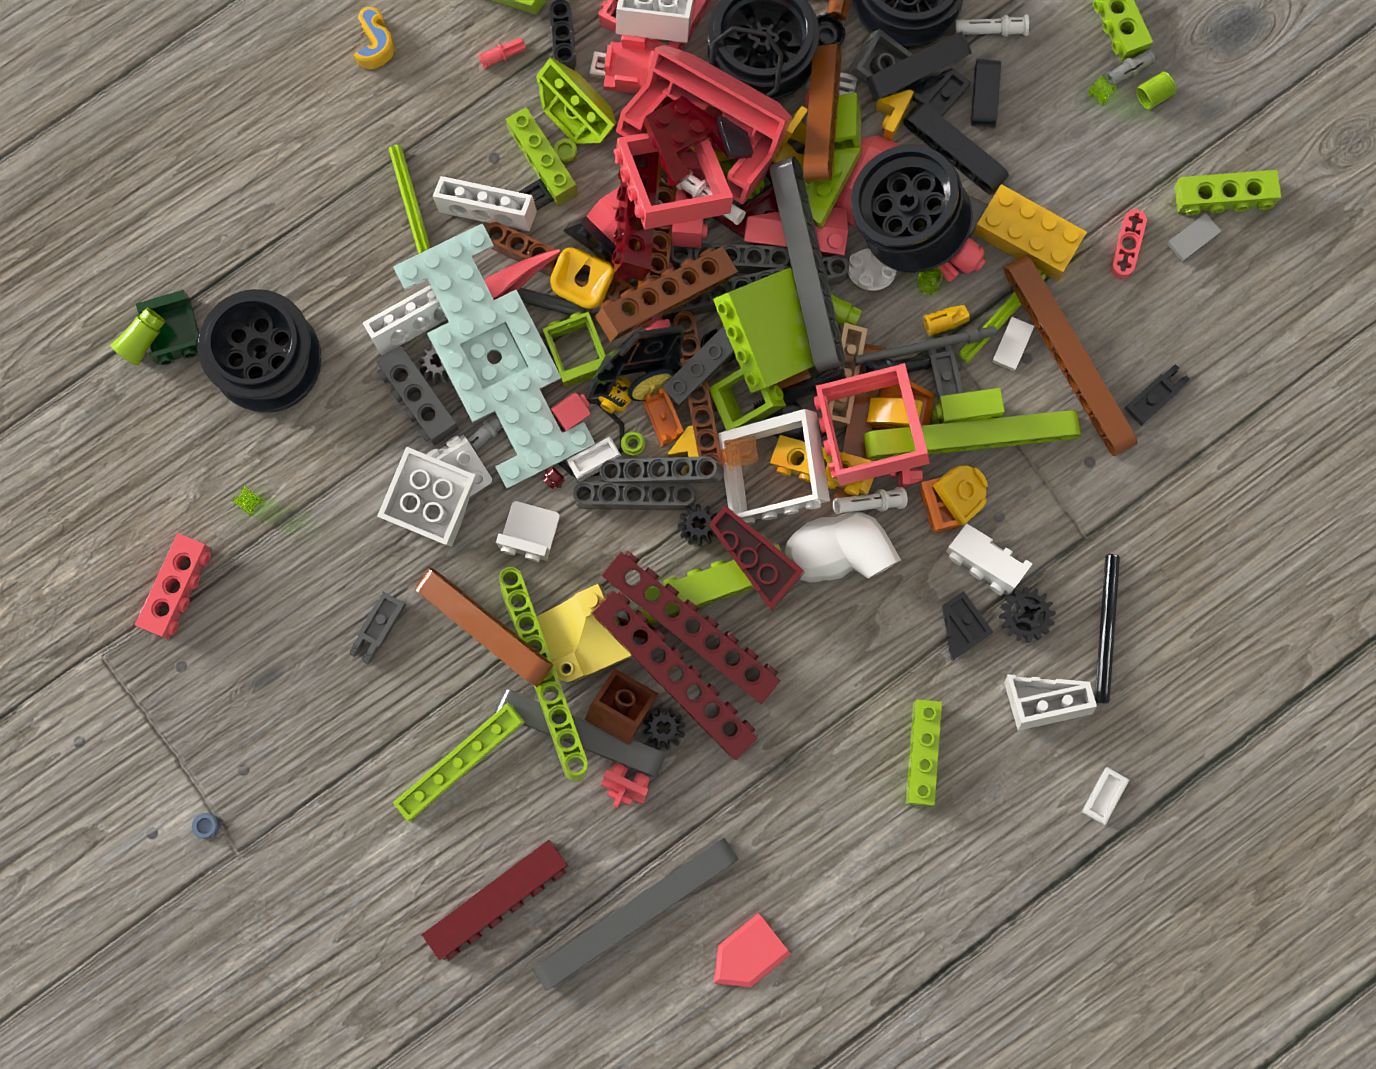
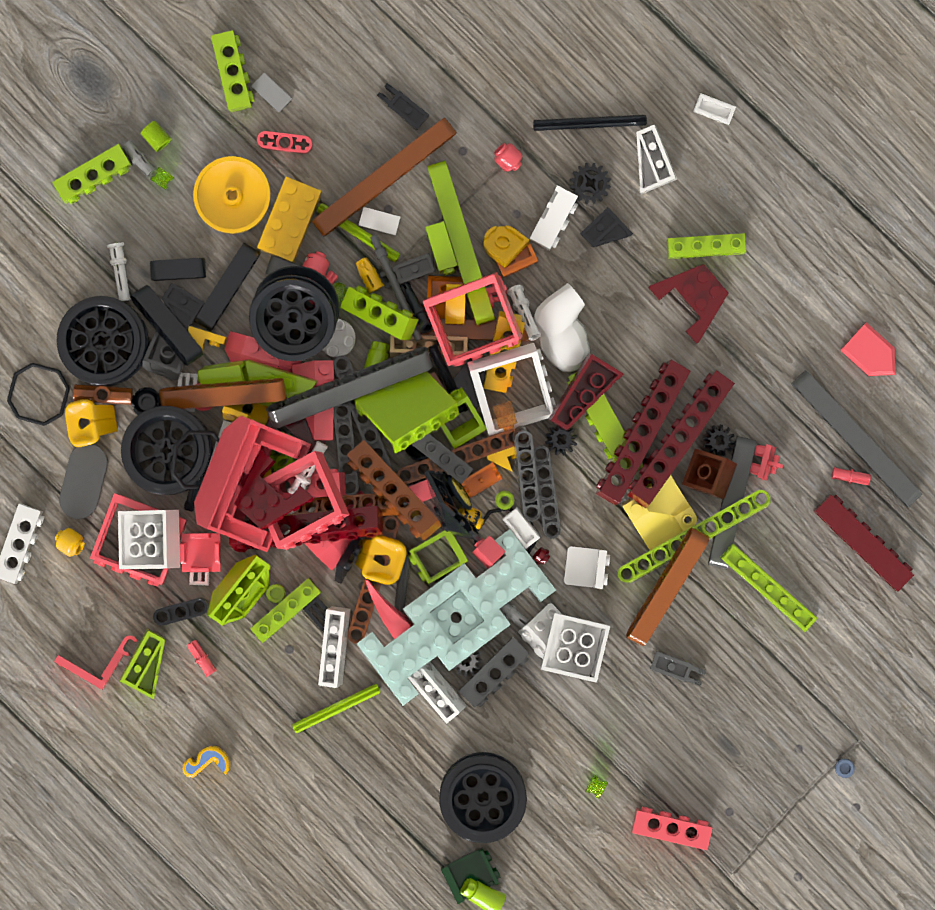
camera: 100 degrees left, 10 degrees up
(587, 898) = (851, 476): none -> coral axle
(734, 139) = (264, 457): black tile -> none
(864, 737) = (700, 291): none -> dark red wing
(896, 318) = (354, 301): none -> lime brick
(1071, 167) = (231, 194): none -> yellow dish
(1075, 515) = (508, 157): none -> coral head

